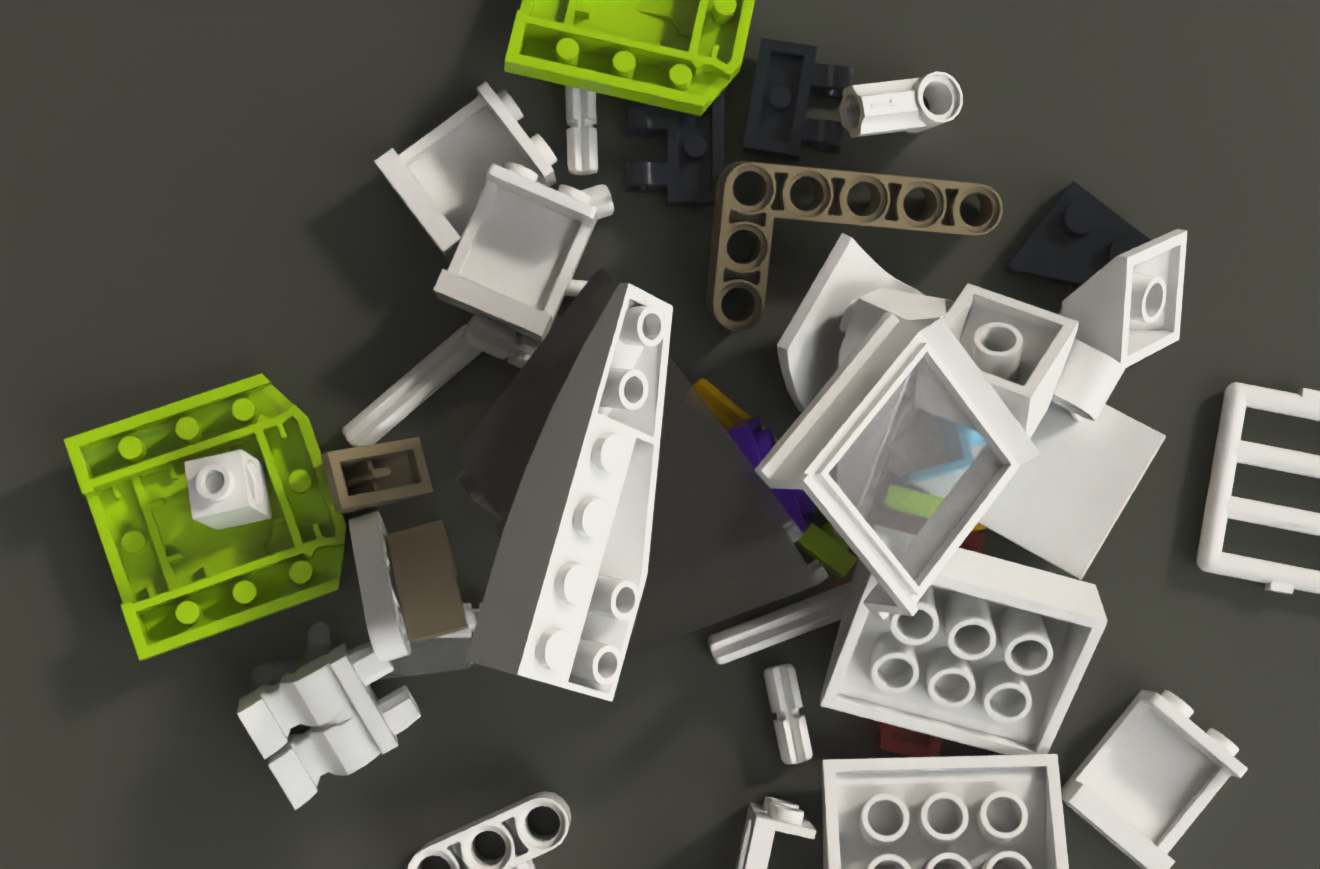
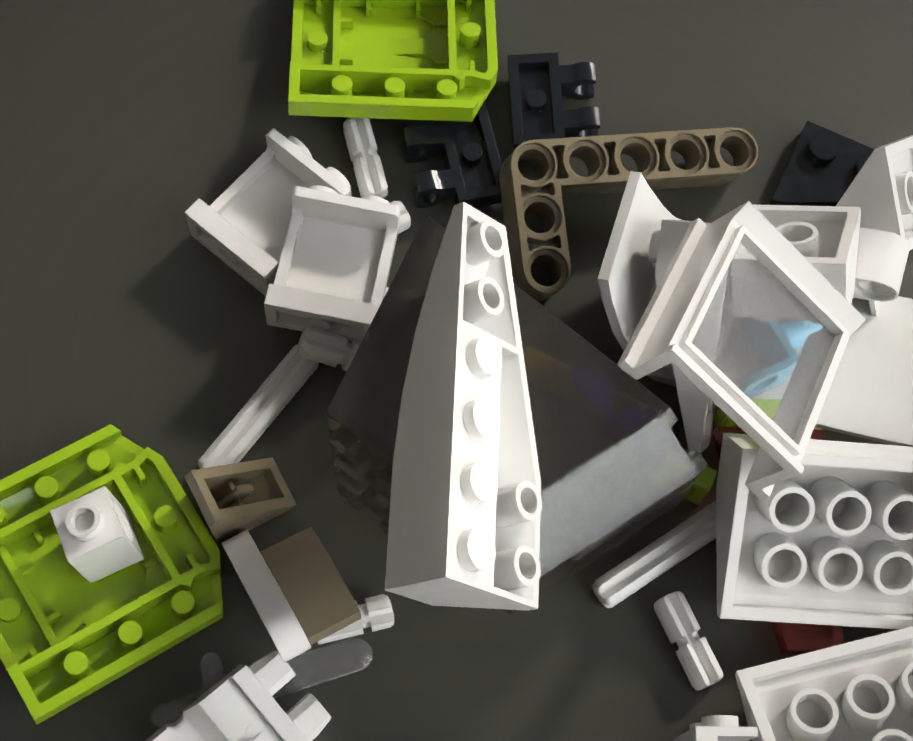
camera: 15 degrees left, 15 degrees down
(900, 105) = (644, 83): white piece -> none

